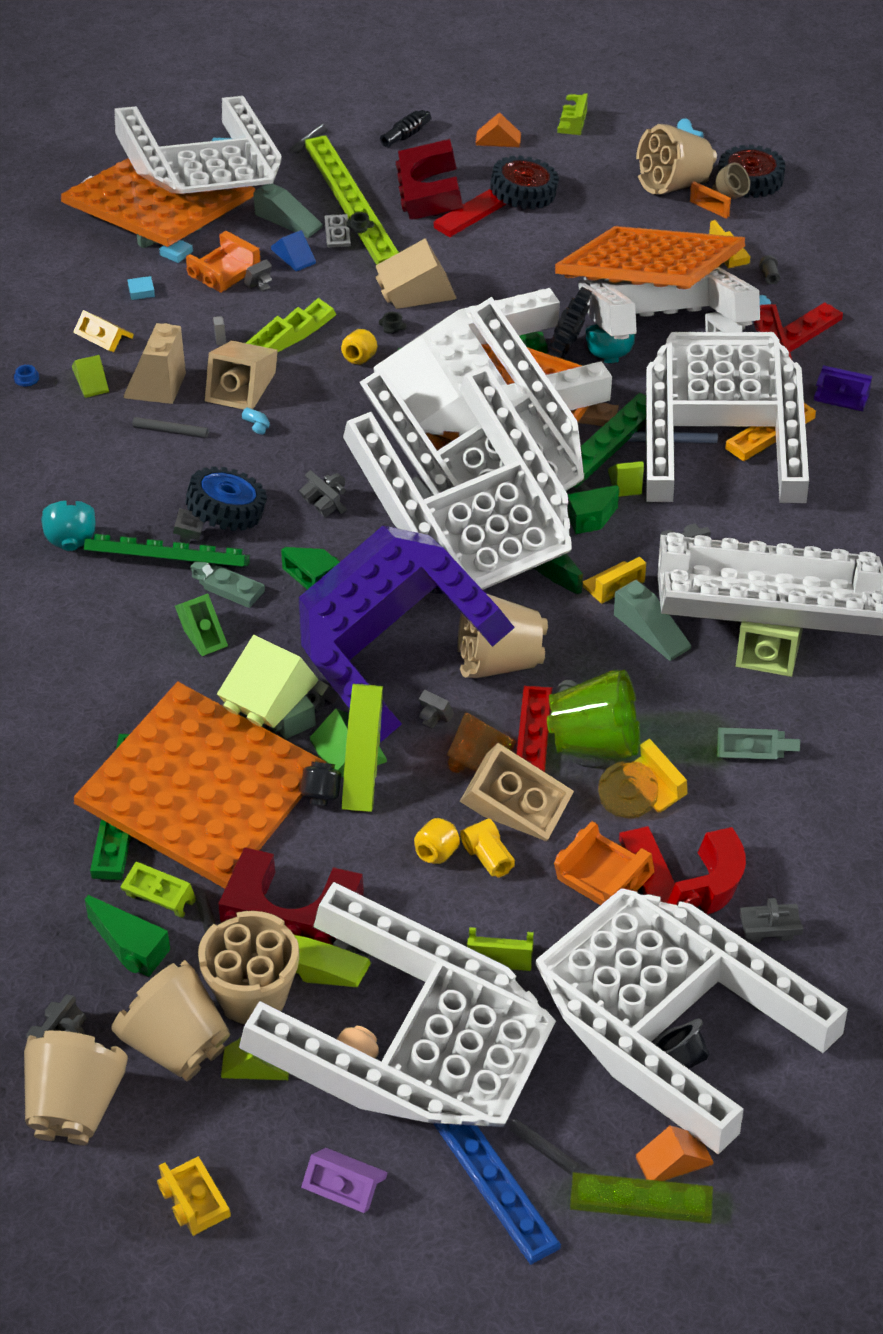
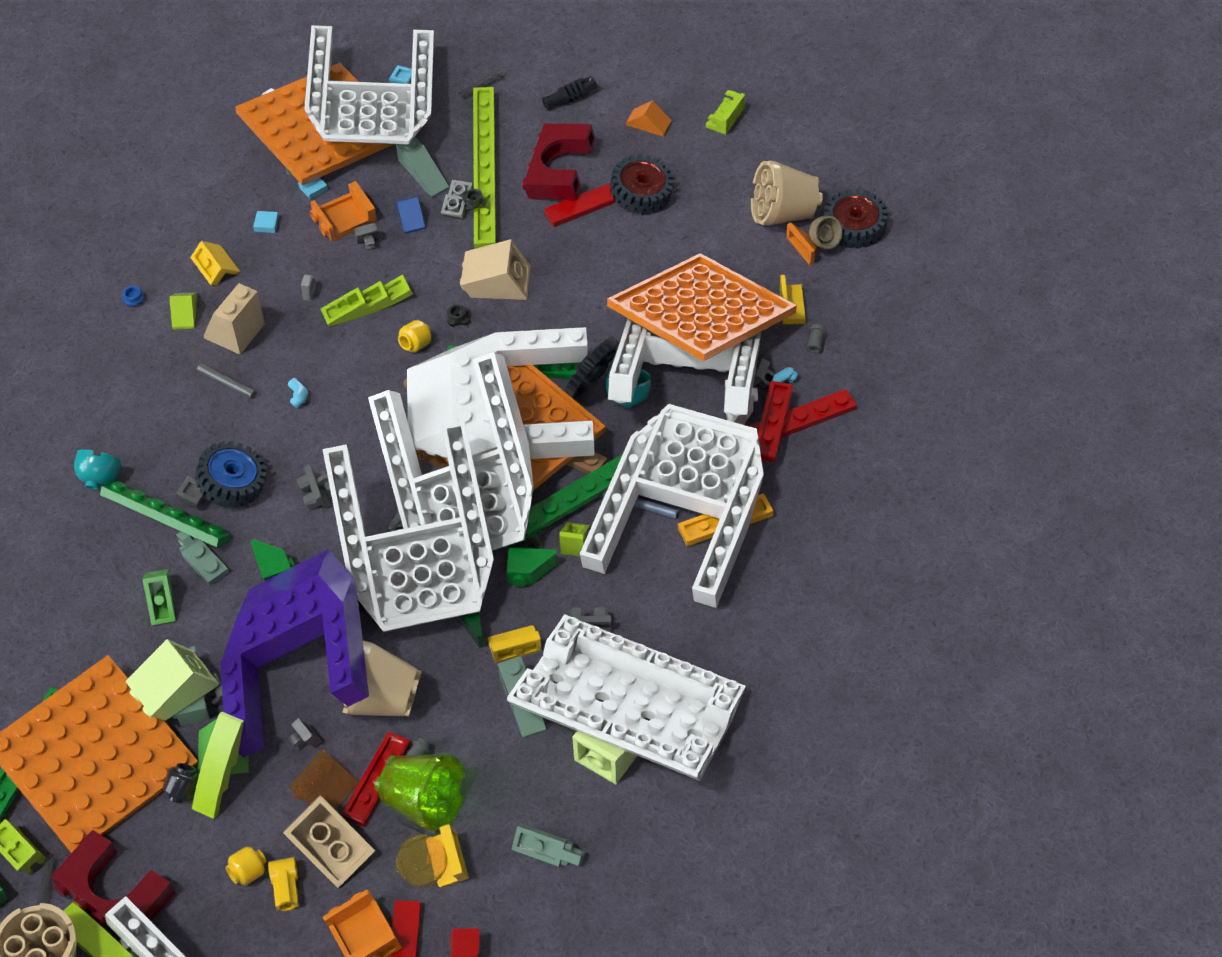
camera: 20 degrees right, 10 degrees up
(239, 374) = (302, 340): tan slope -> none
(685, 124) = (822, 157): medium azure arm -> none
(843, 388) = (811, 492): dark purple hinge -> none

